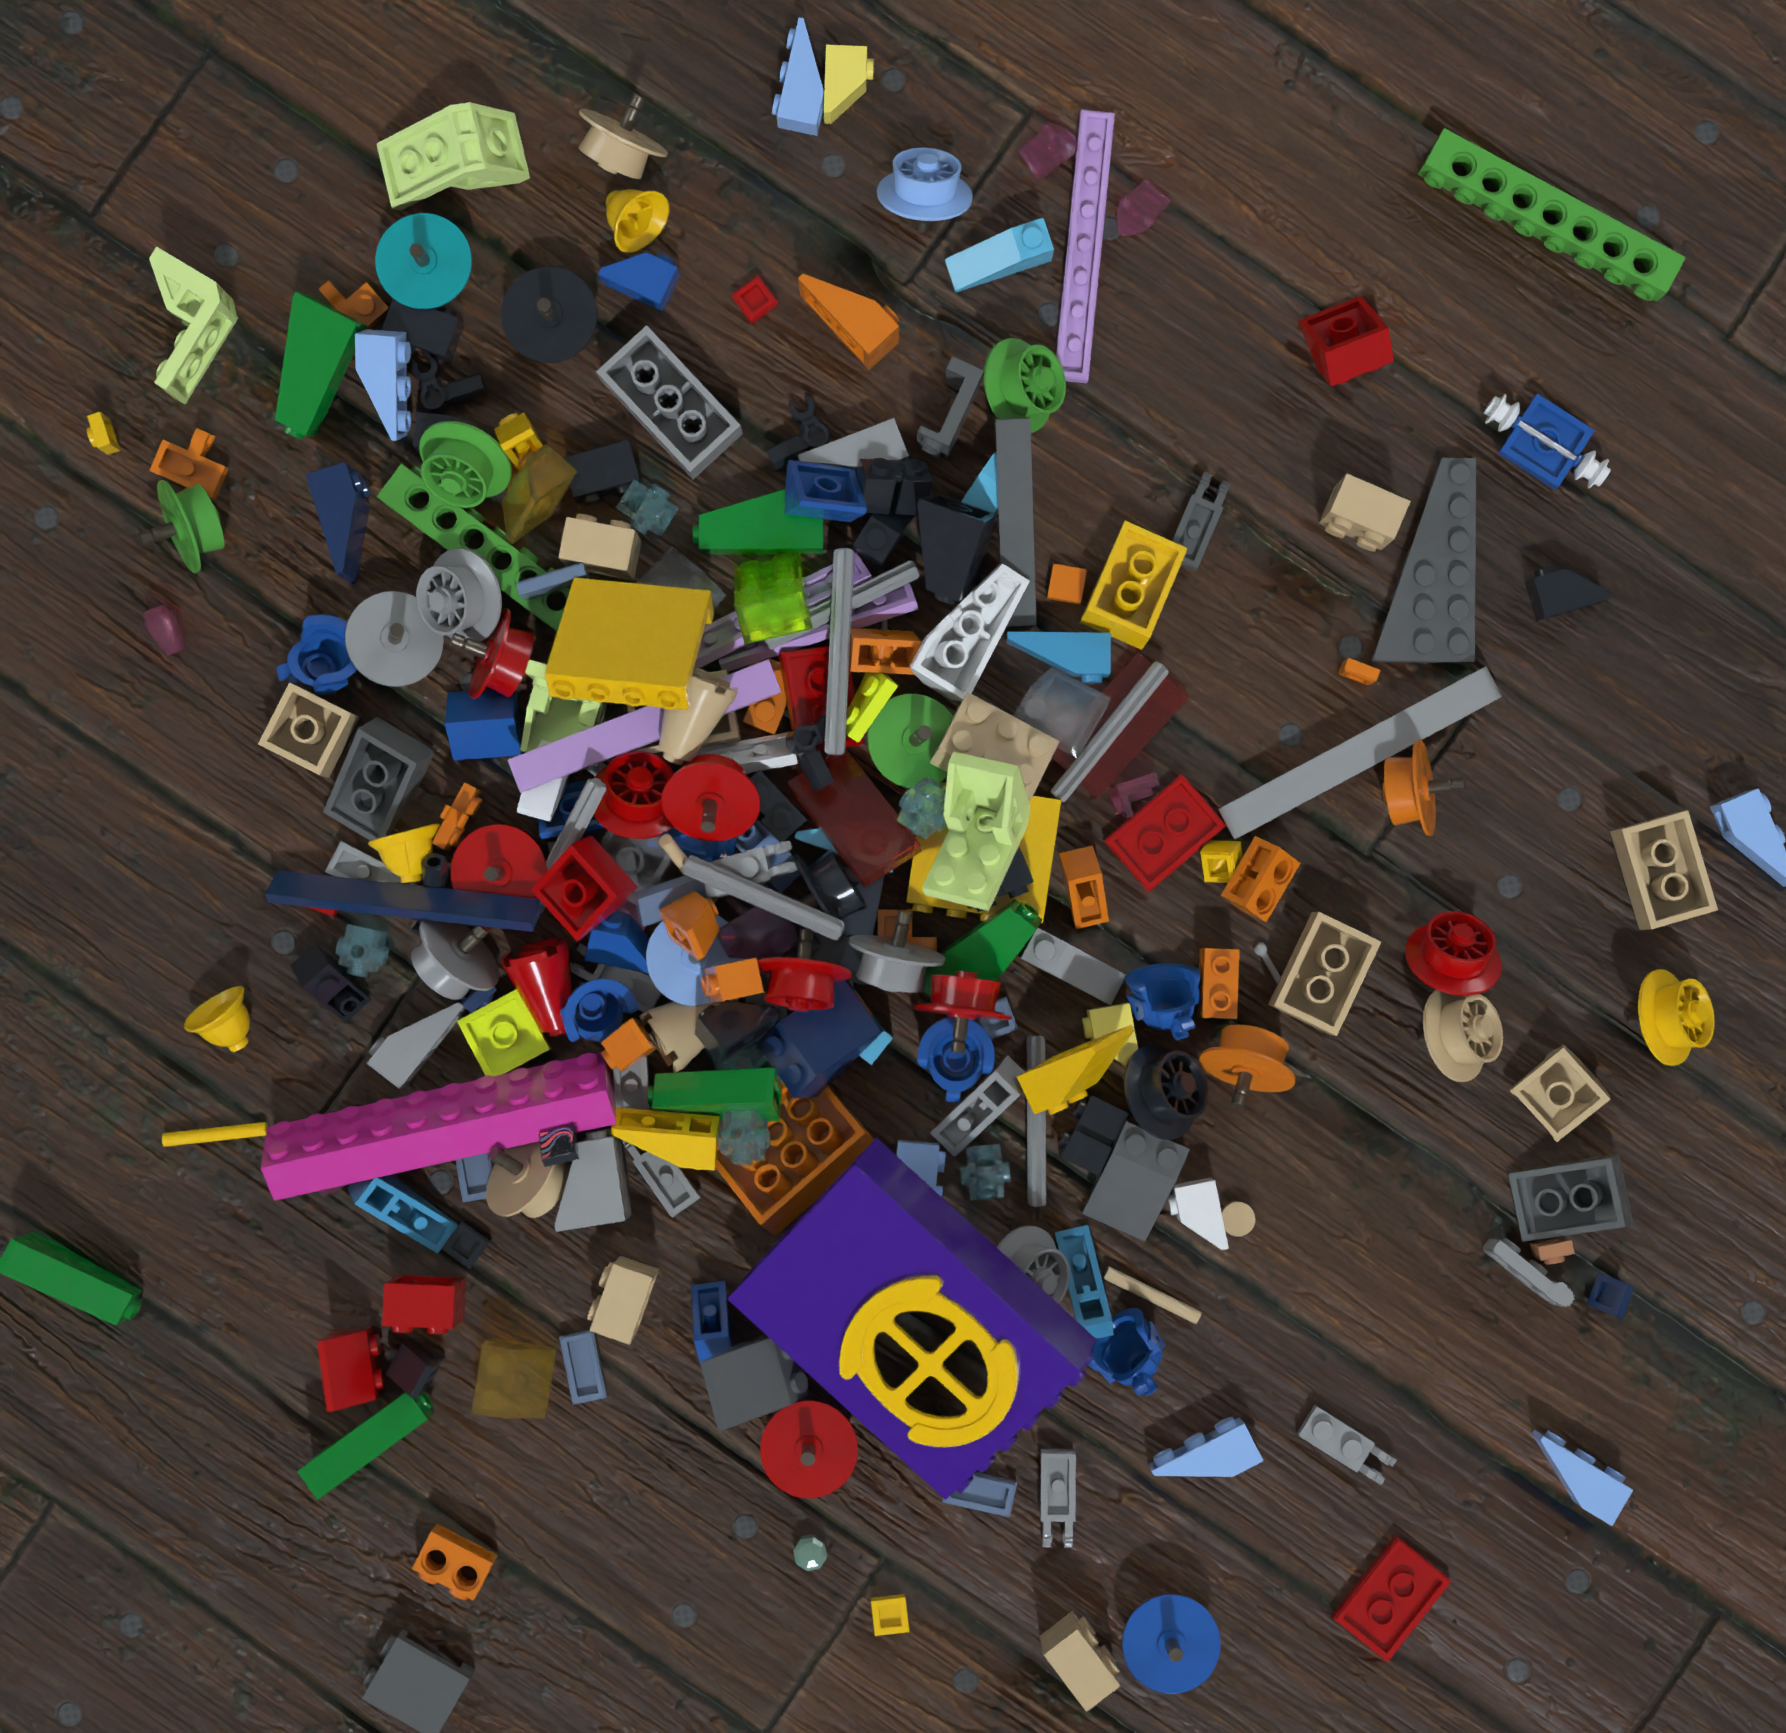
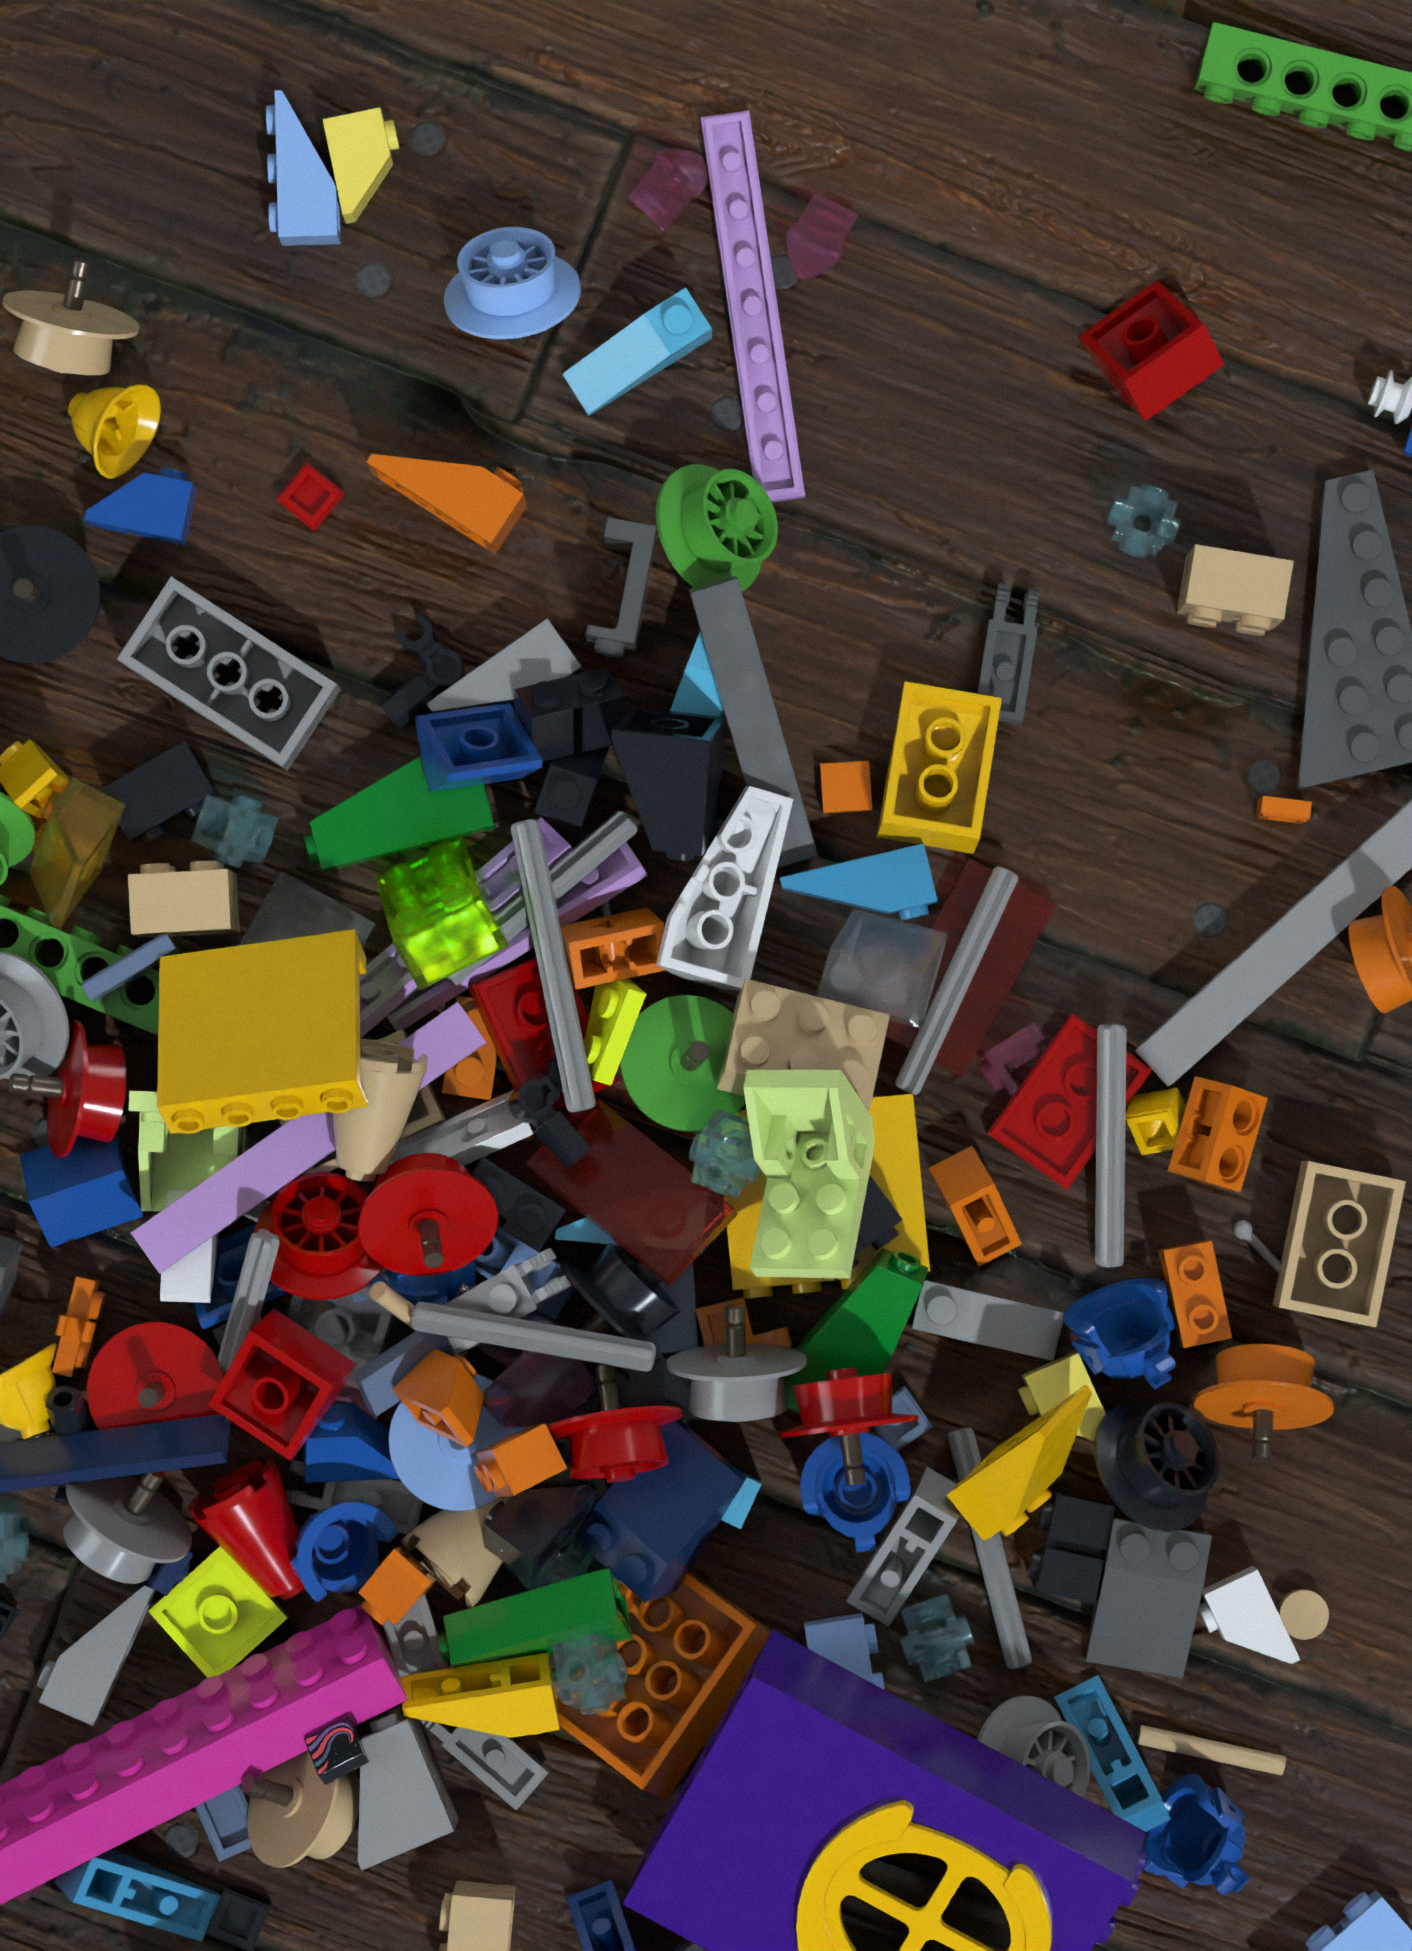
camera: 10 degrees left, 0 degrees up
(1186, 868) = (1110, 1145): none -> light grey axle
(1321, 444) = (1155, 506): none -> clear light blue brick

